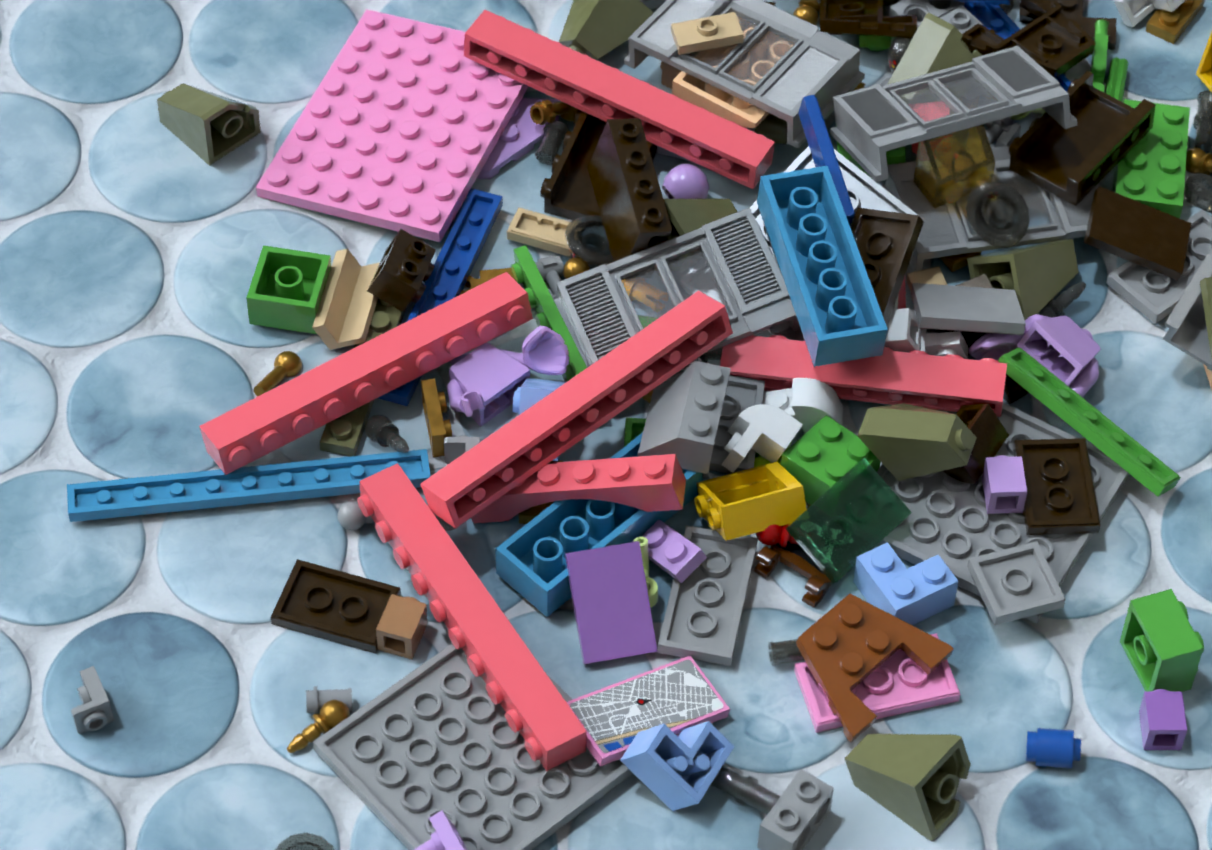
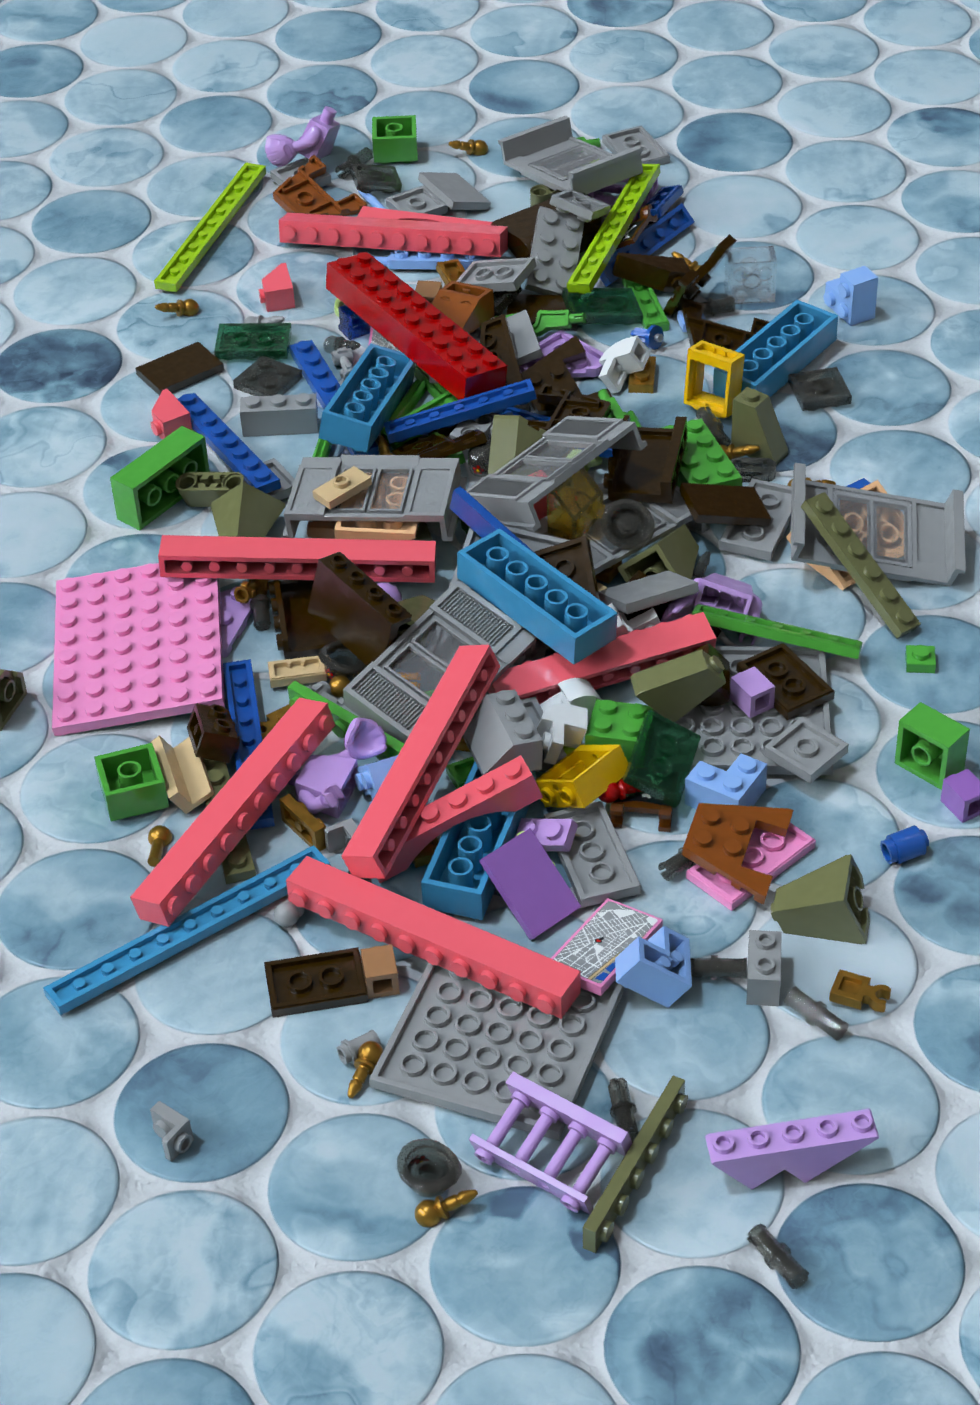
camera: 25 degrees left, 10 degrees down
(382, 431) = (268, 848): clear smoke bar -> none

